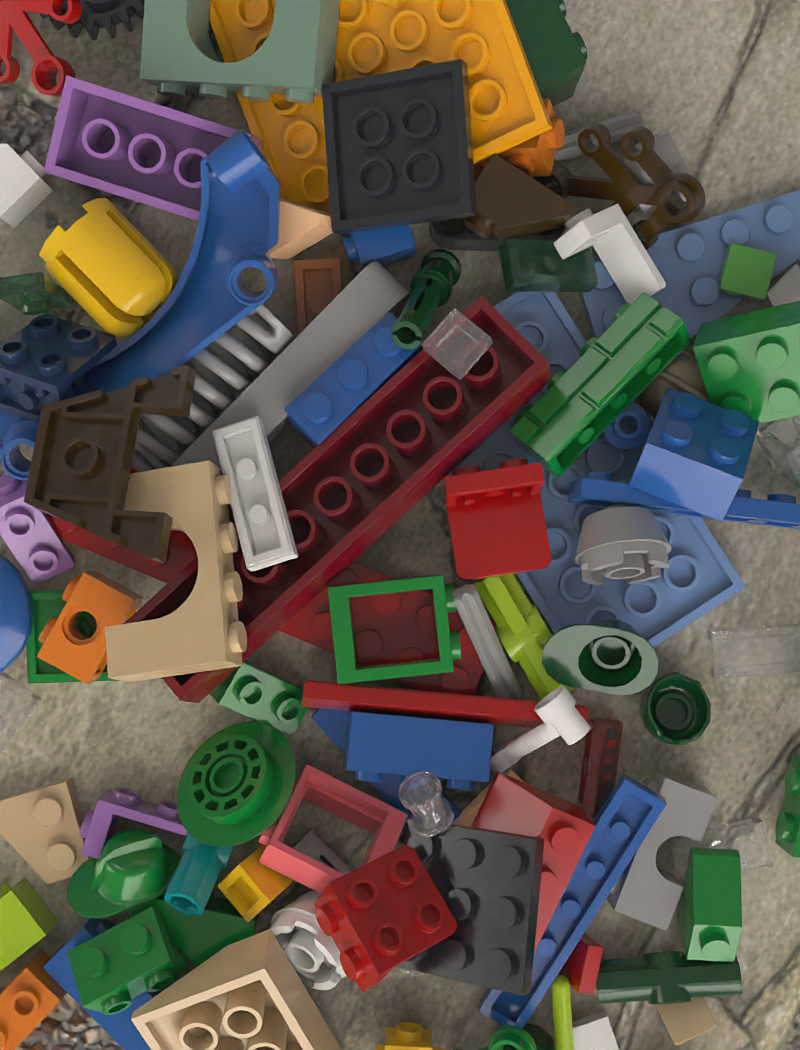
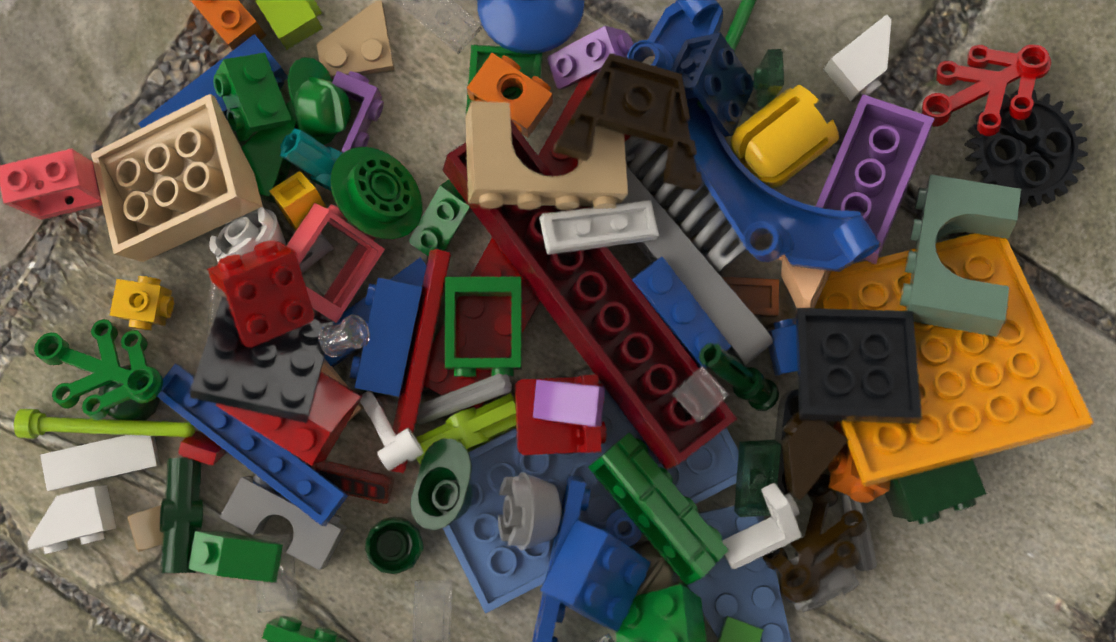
camera: 90 degrees right, 5 degrees down
(484, 509) = (568, 402): none -> slope

